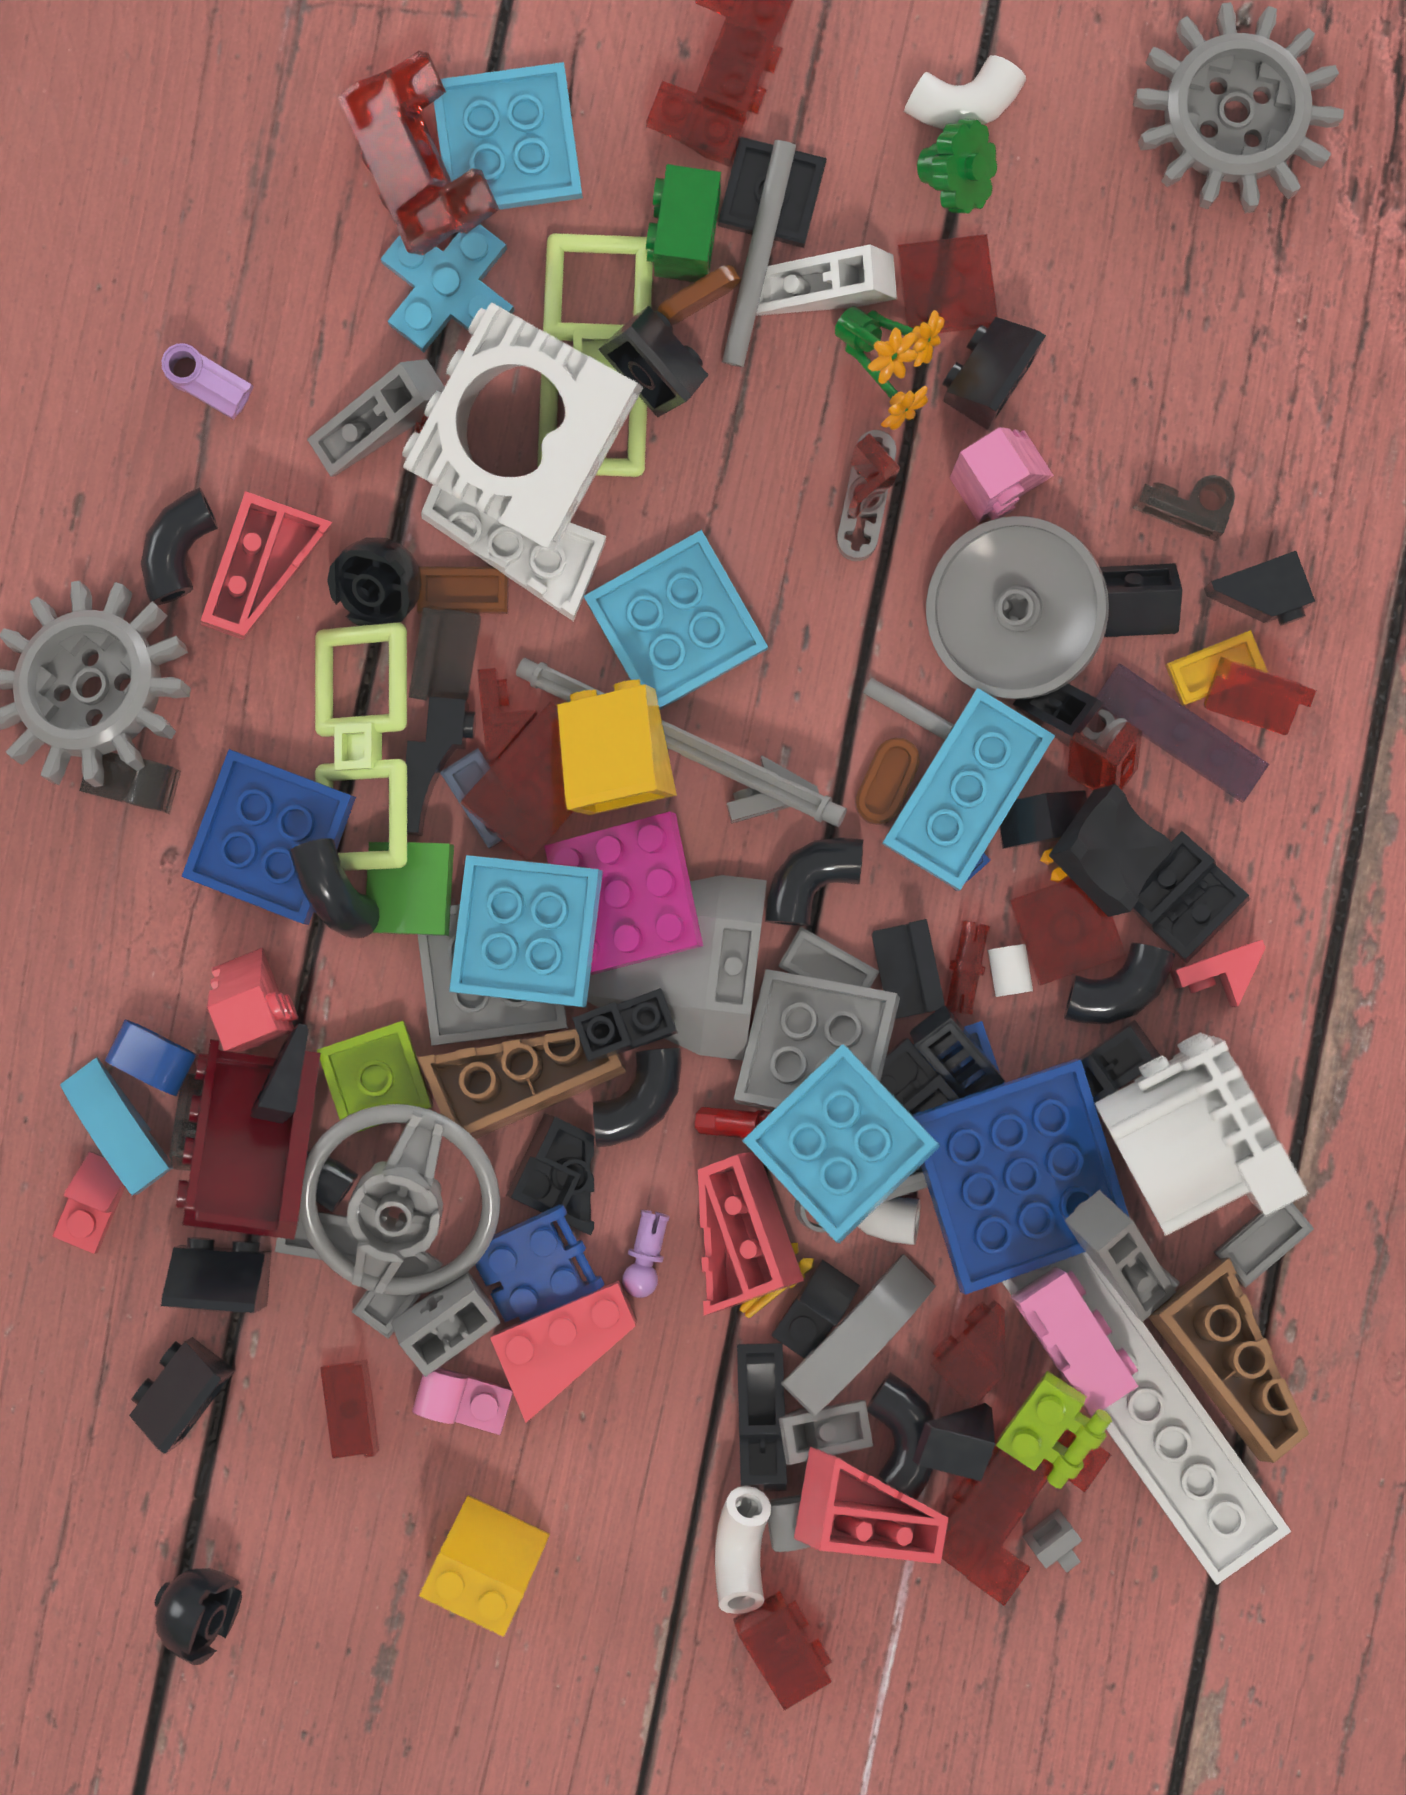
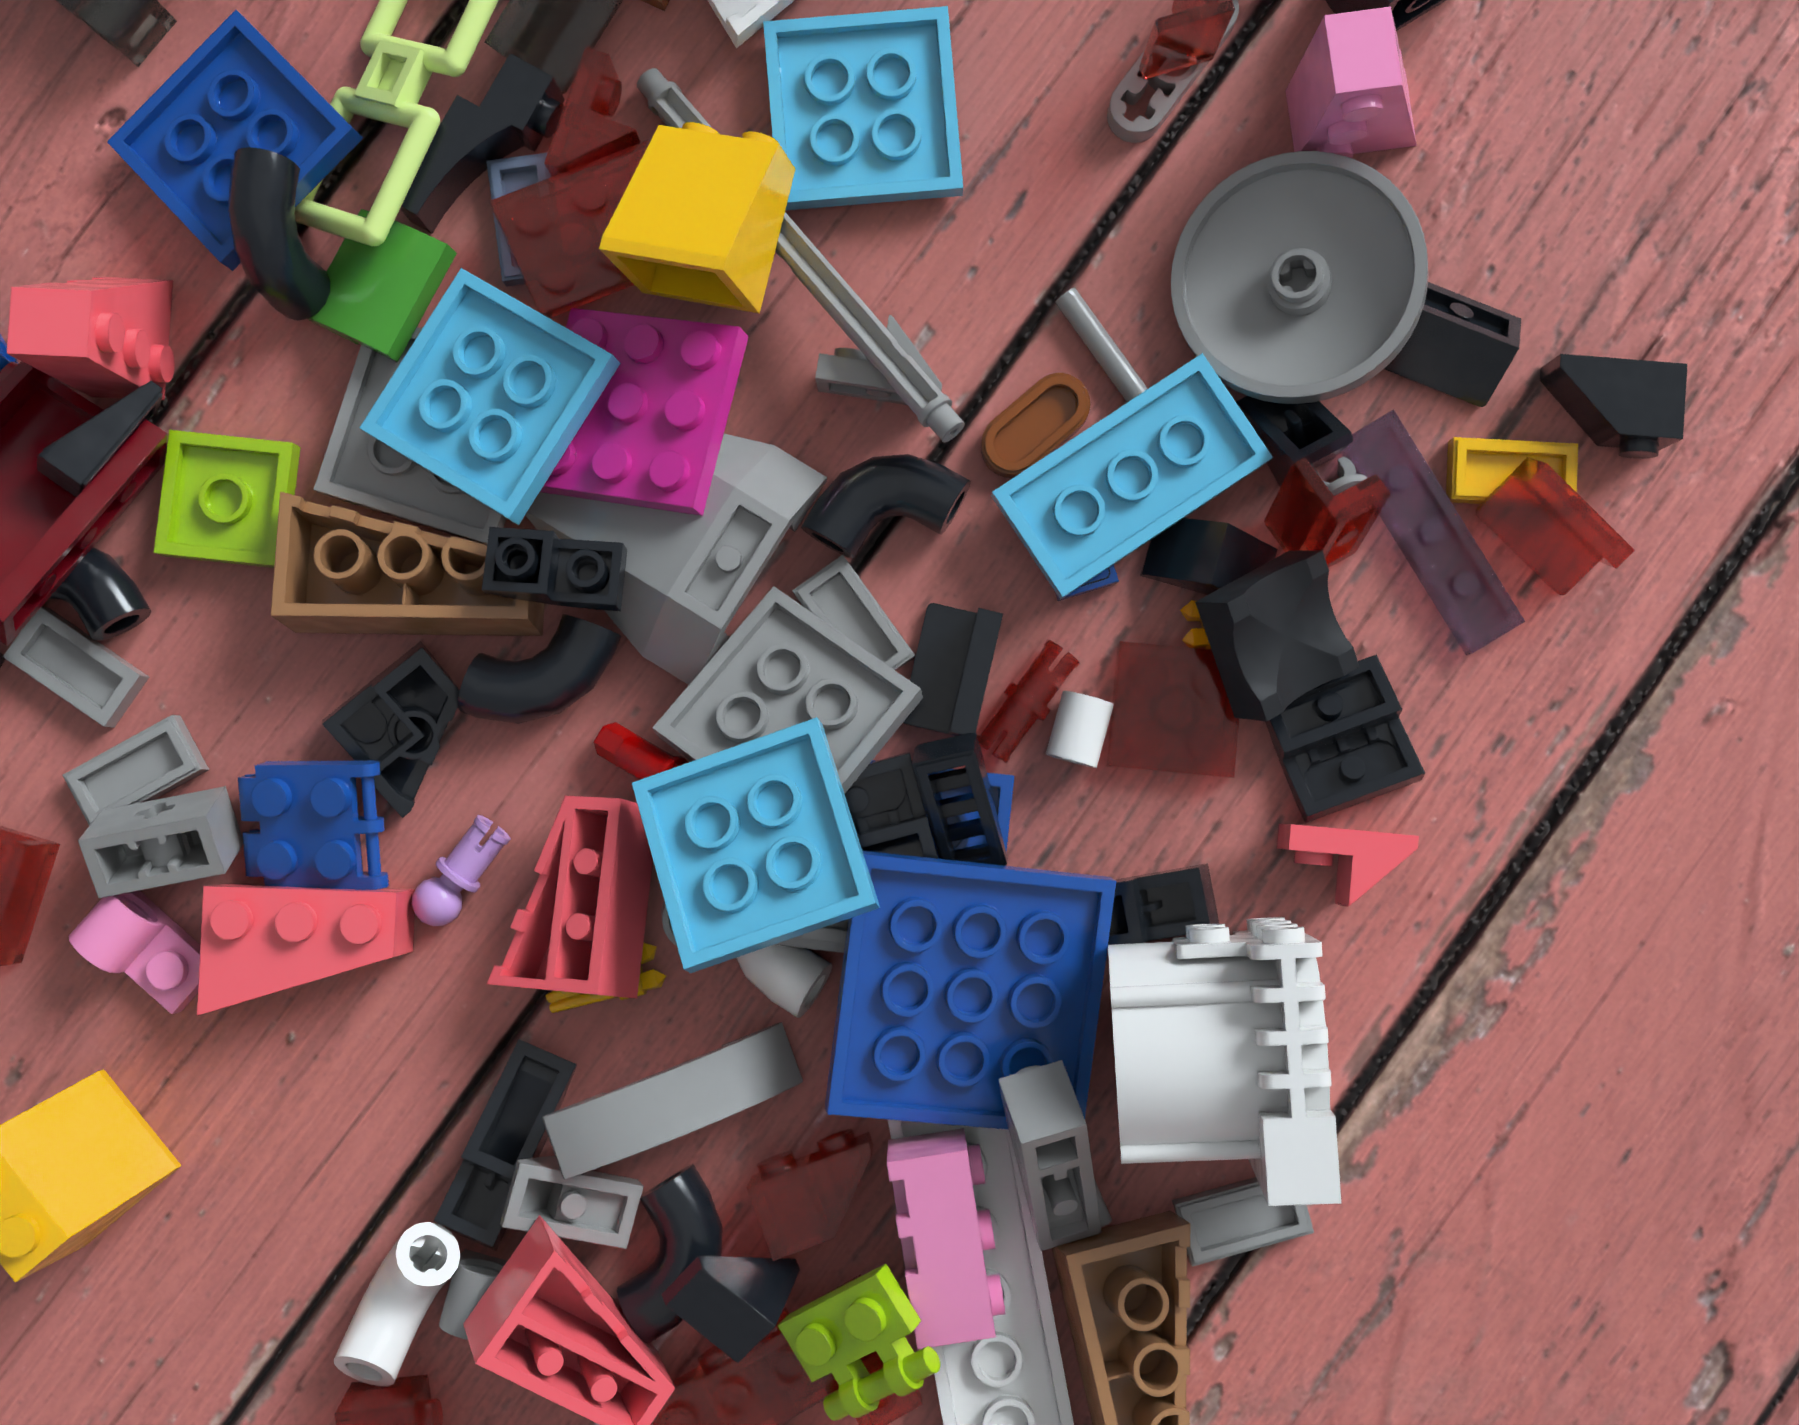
camera: 30 degrees right, 0 degrees up
(405, 1183) = (179, 644): light grey piece -> none
(816, 1309) = (639, 1041): black slope -> none
(1124, 992) = (1210, 822): black cylinder -> none
(1188, 513) = (1567, 263): clear smoke plate -> none

